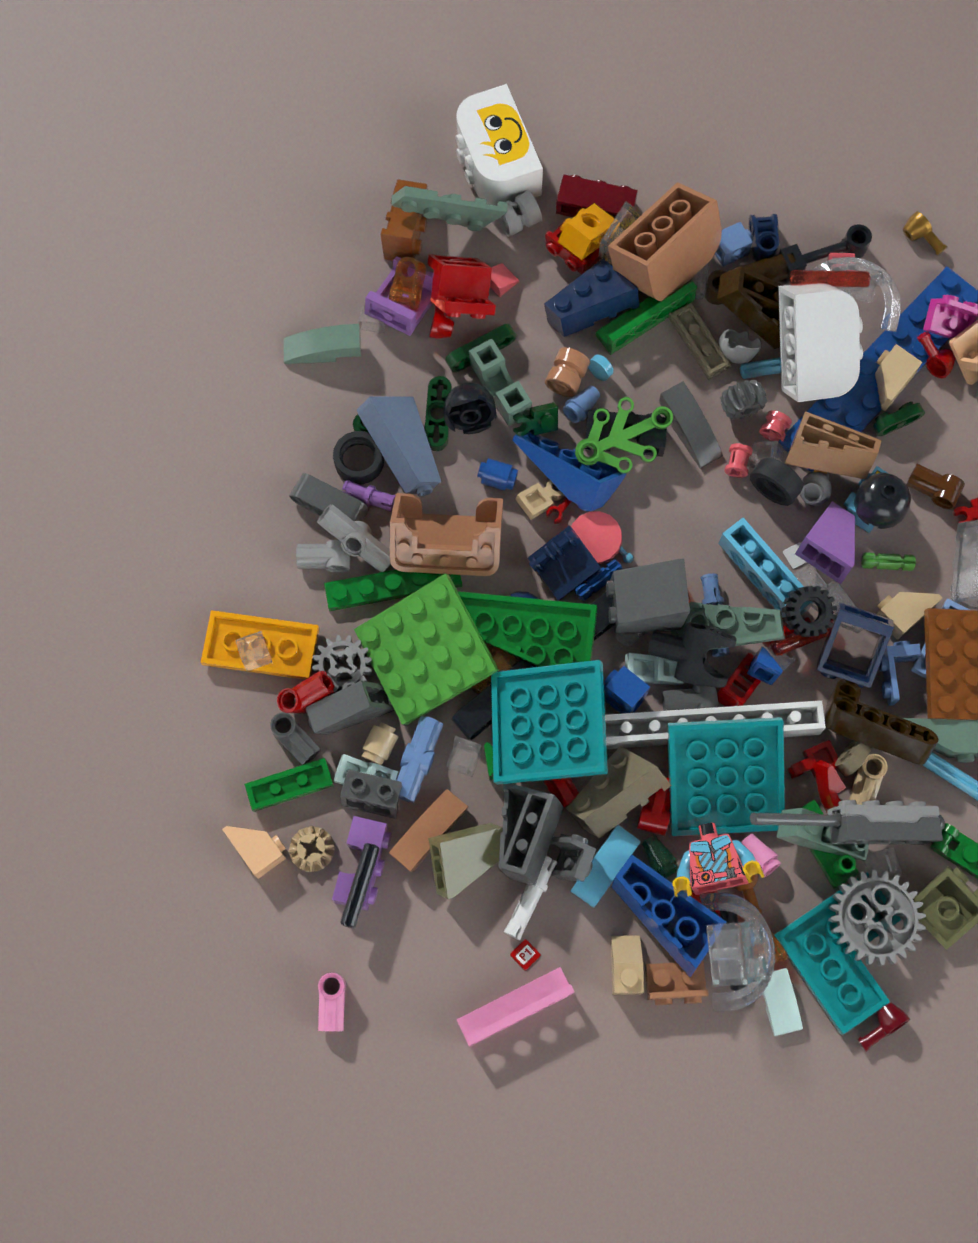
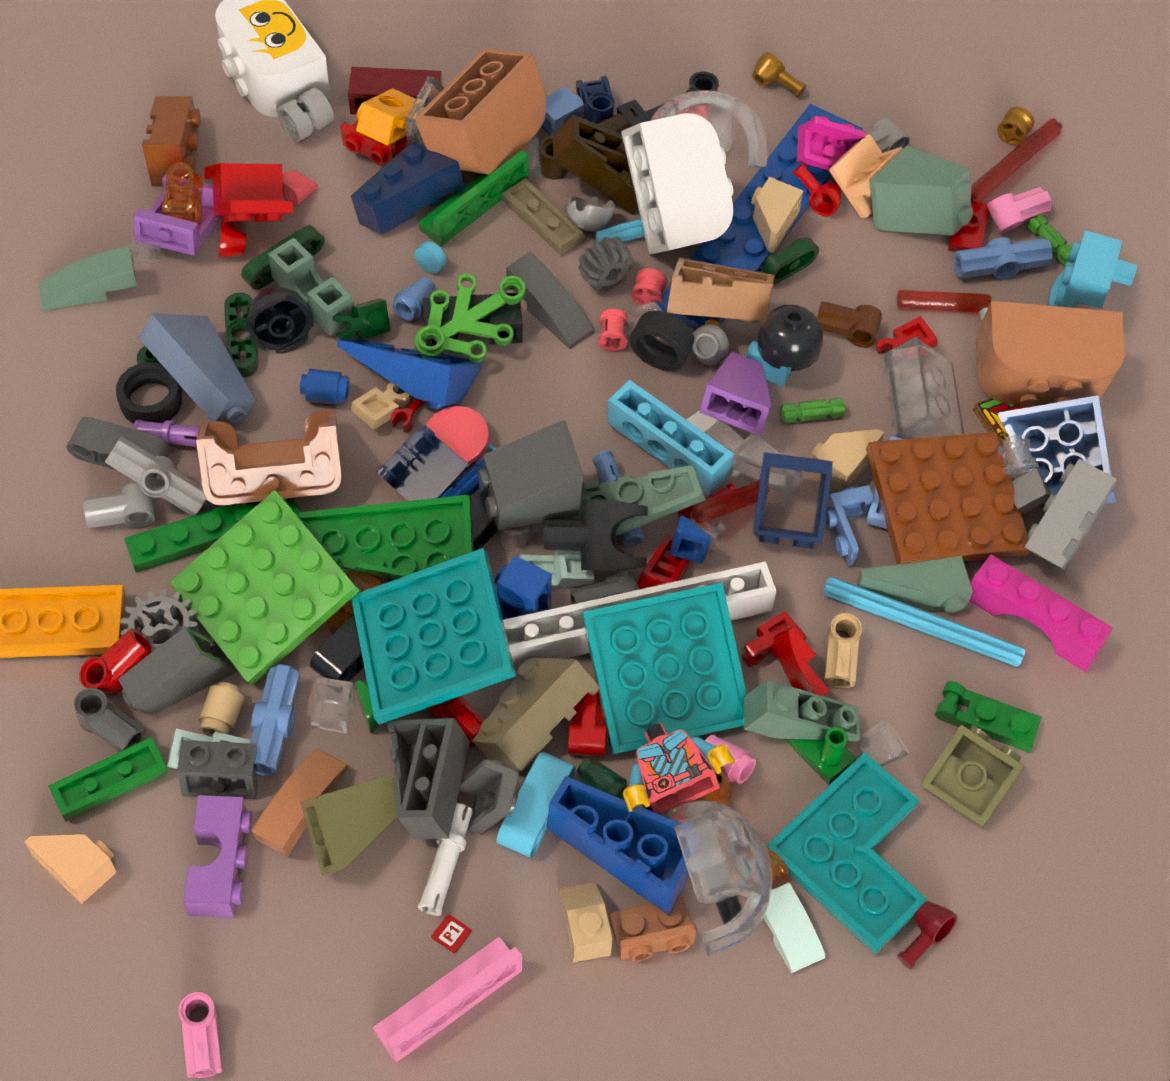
camera: 15 degrees left, 15 degrees down
(253, 651) = (42, 626): clear slope -> none
(315, 861) = (154, 866): tan gear -> none
(359, 885) = (218, 876): black axle -> none
(448, 208) = (221, 111): sand green wing -> none
(567, 370) = (391, 265): nougat wheel -> none
(825, 611) = (737, 448): black tyre -> none
(832, 278) = (708, 110): clear red axle -> none
(852, 757) = (818, 621): dark tan beam -> none
(855, 931) = (910, 778): light grey gear -> none
(869, 822) = (853, 687): piece -> none
(876, 727) = (840, 582): dark brown beam -> none

